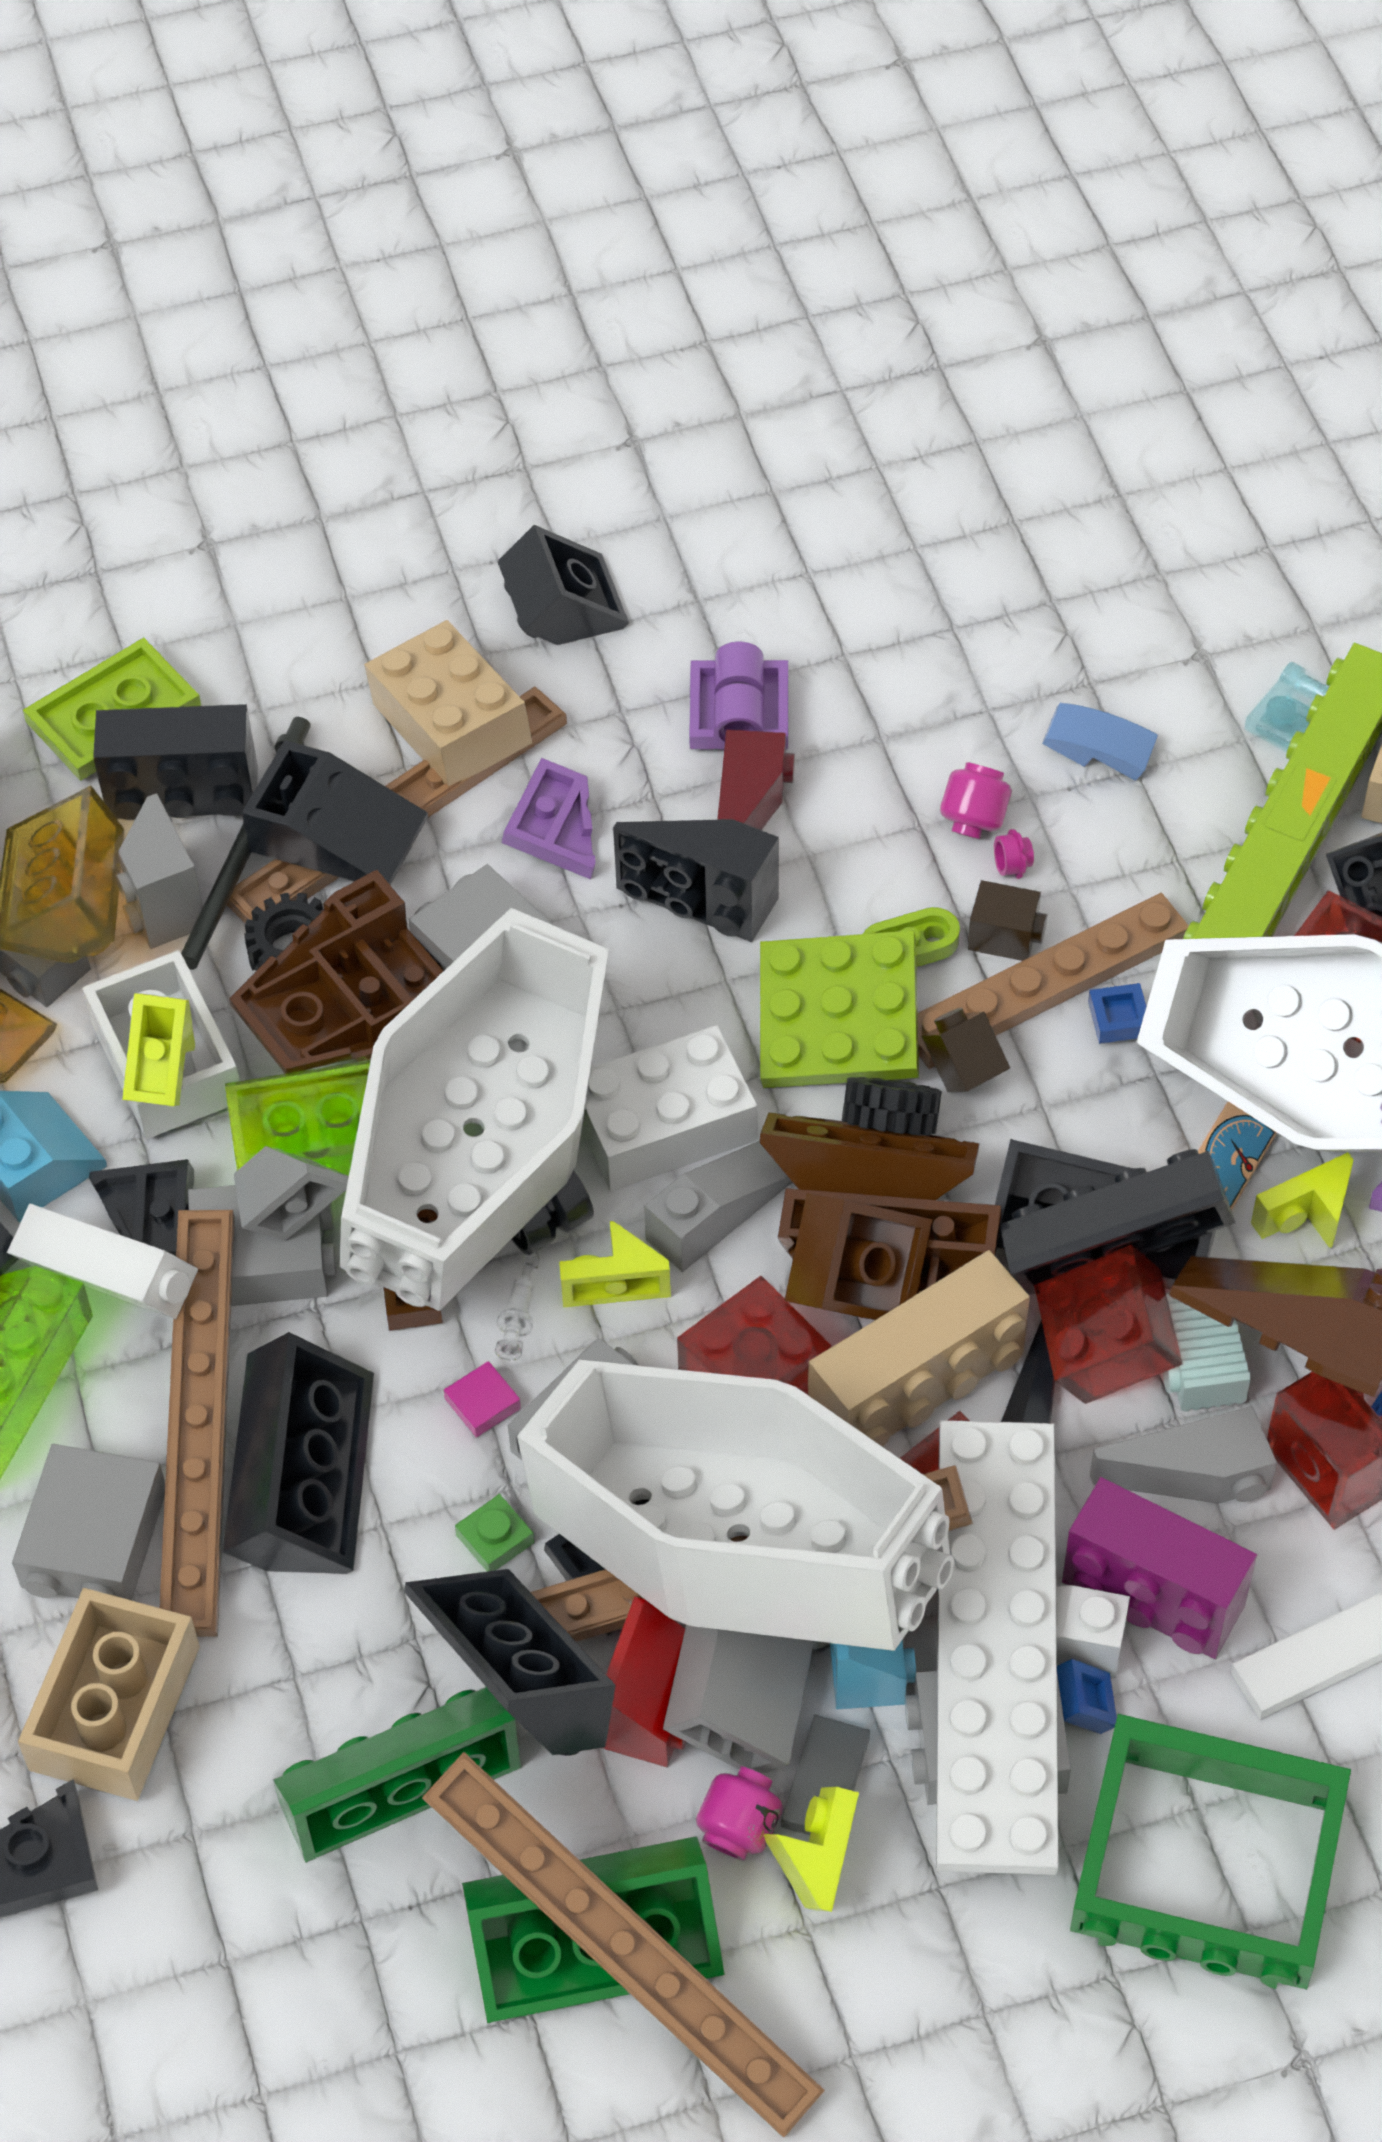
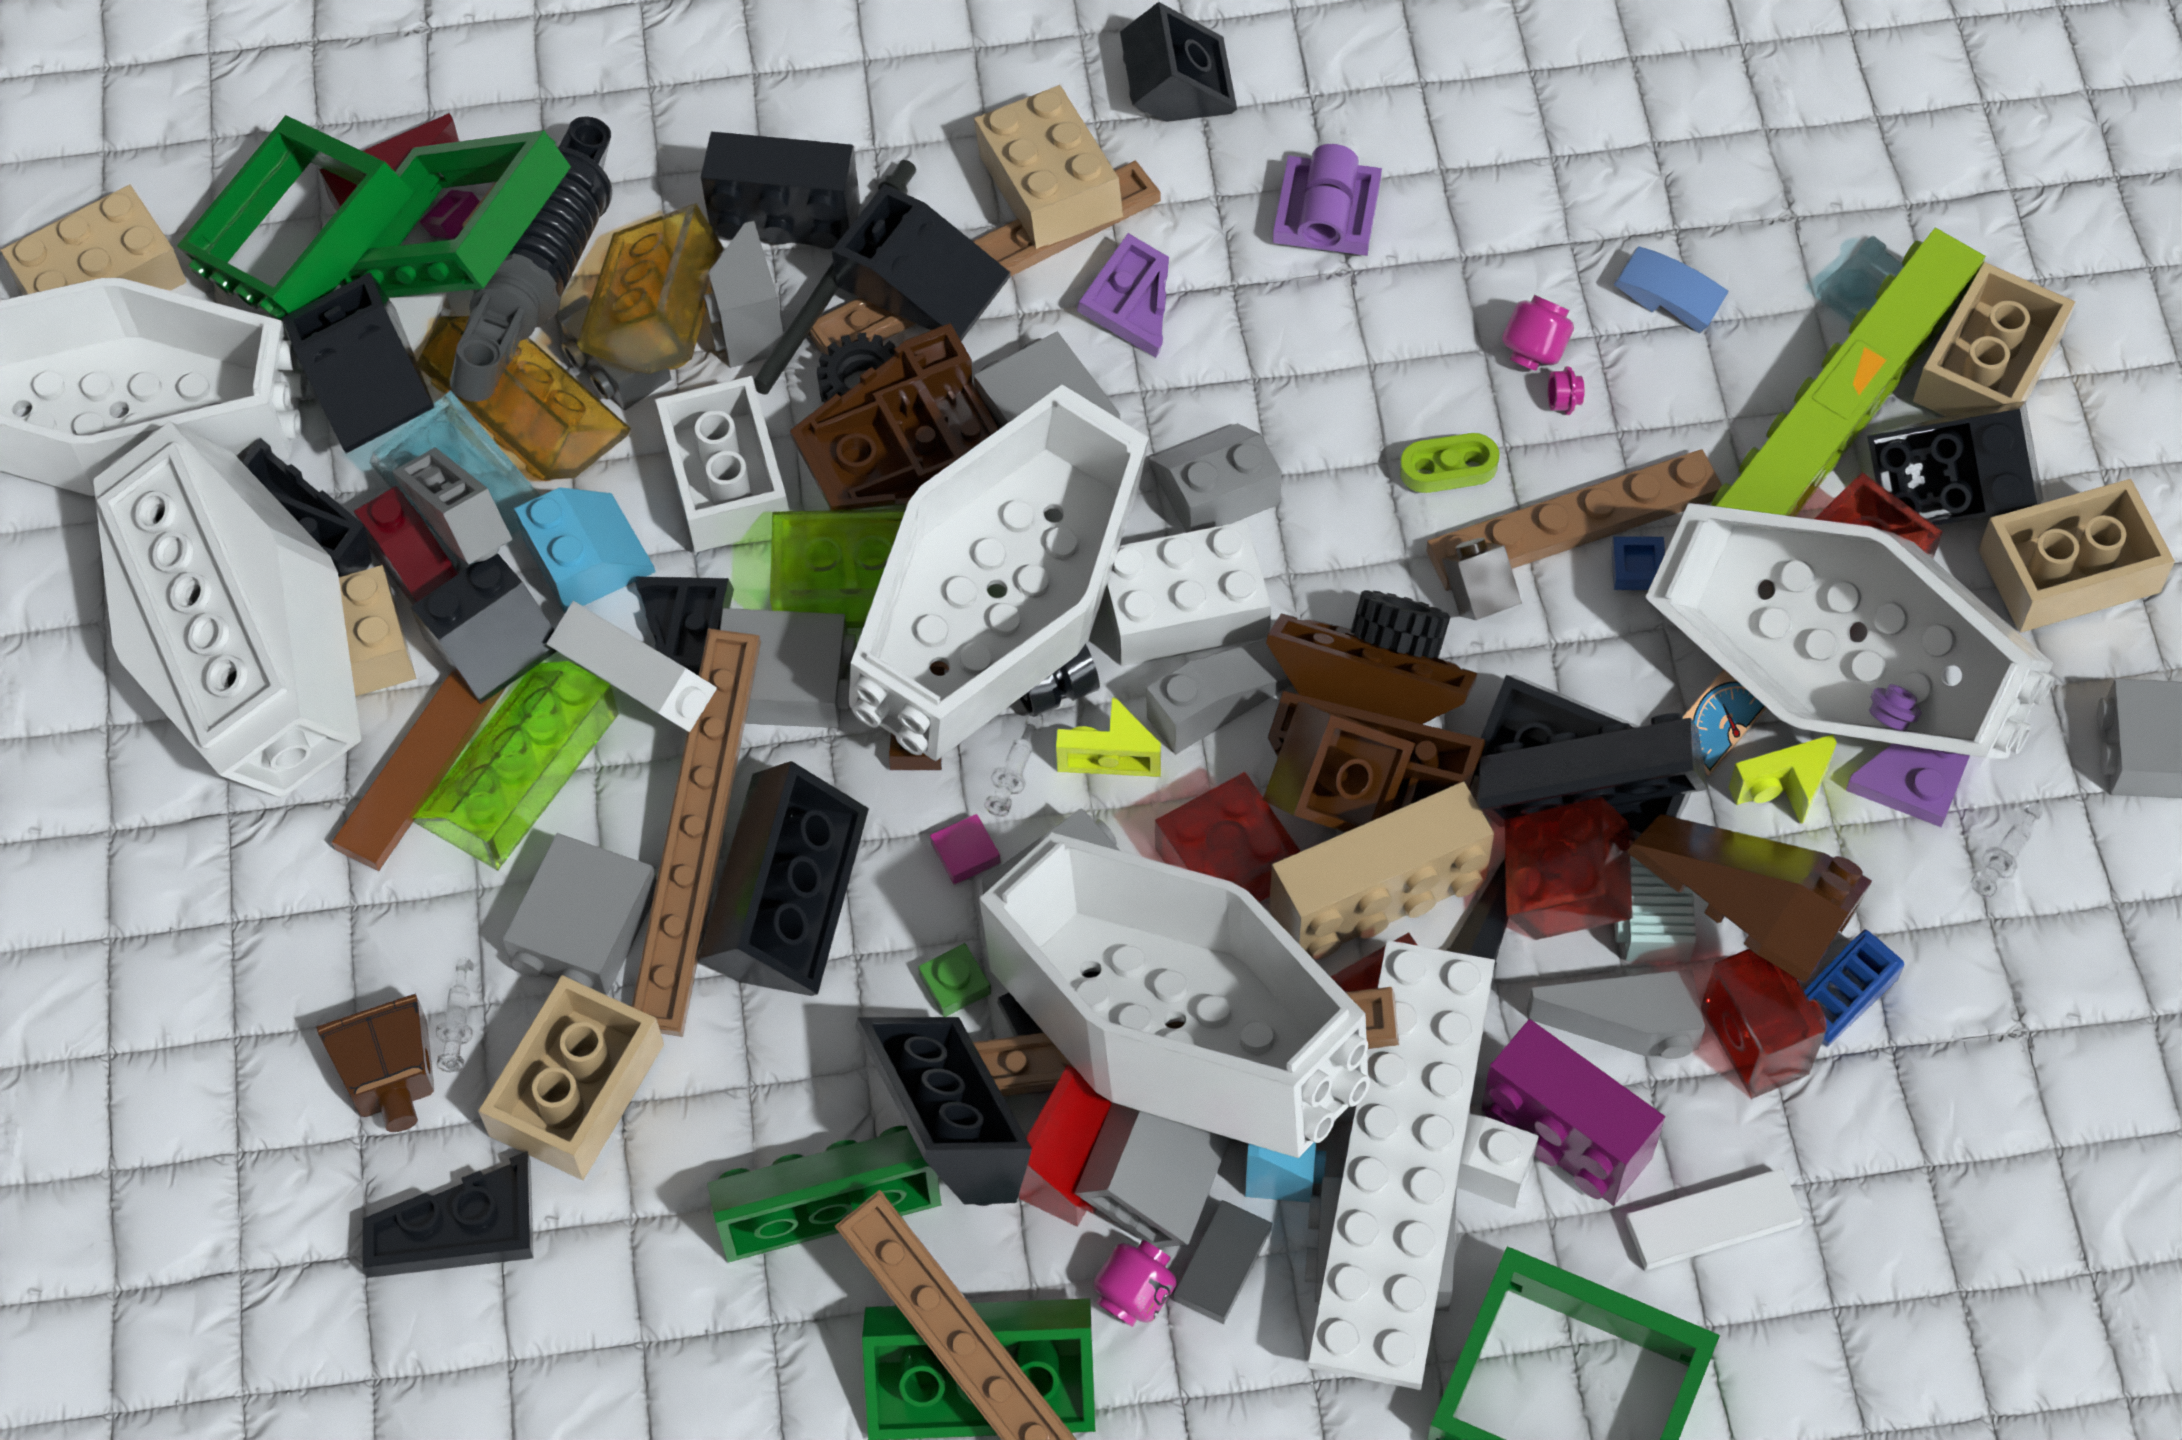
camera: 10 degrees right, 5 degrees up
(126, 680) = (748, 105): lime plate -> none
(157, 1048) = (712, 470): neon yellow slope -> none
(284, 1192) = (808, 625): light grey slope -> none
(678, 988) = (1219, 478): none -> light grey slope
(701, 870) = (1260, 367): black slope -> none
(754, 776) = (1321, 295): dark red slope -> none
(817, 1864) = (1198, 1343): neon yellow slope -> none
(838, 1009) = (1368, 520): lime plate -> none
(1006, 921) = (1545, 456): dark brown brick -> none
(1086, 1696) = (1481, 1223): blue plate -> none

